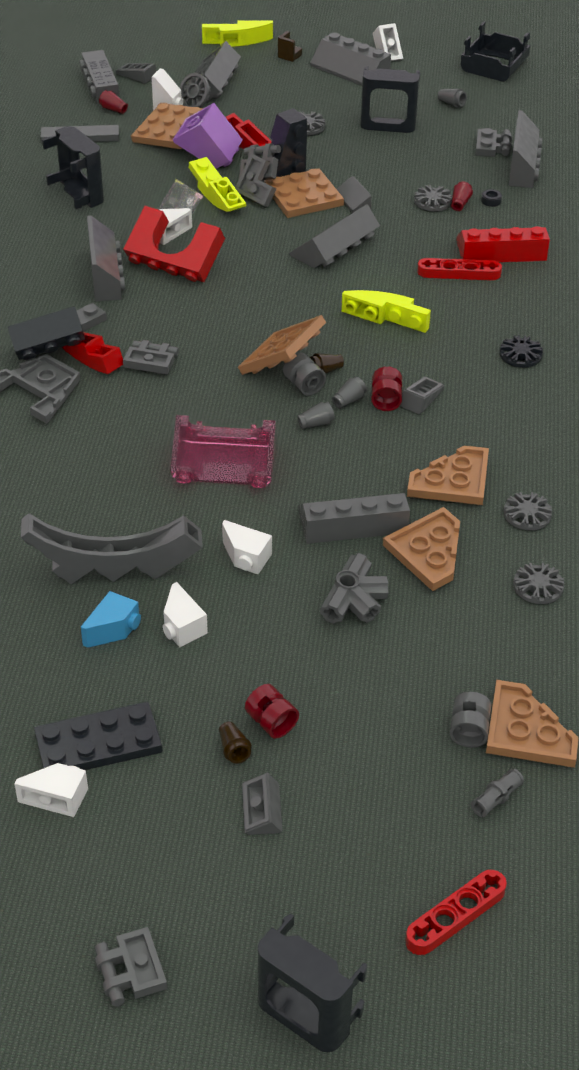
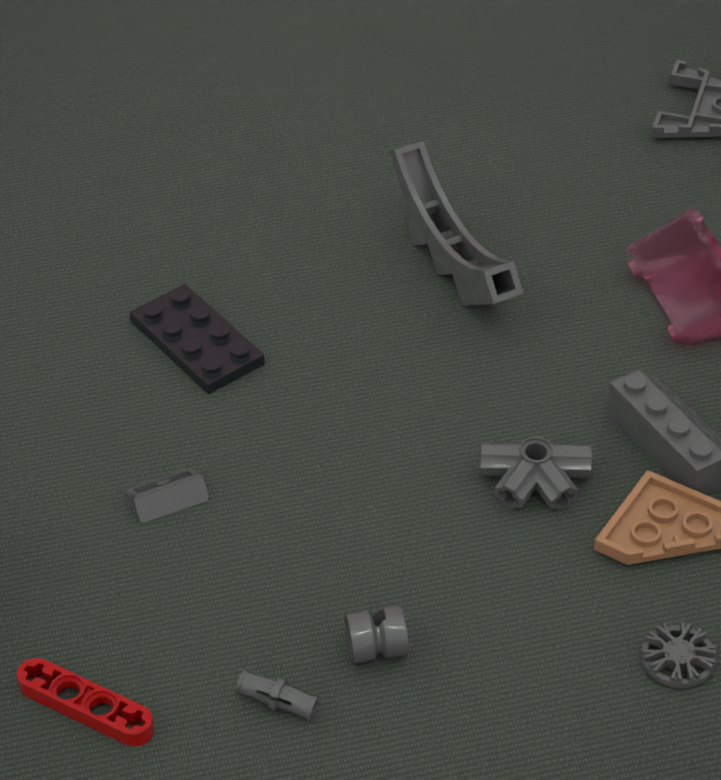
camera: 70 degrees right, 0 degrees up
(53, 788) = (109, 326): white slope -> none
(111, 620) = (362, 285): dark azure slope -> none
(183, 617) = (403, 337): white slope -> none
(234, 743) = (238, 439): dark brown cone -> none
(246, 546) = (547, 356): white slope -> none
(271, 710) = (295, 452): dark red wheel -> none
(528, 729) = (401, 699): medium nougat plate -> none

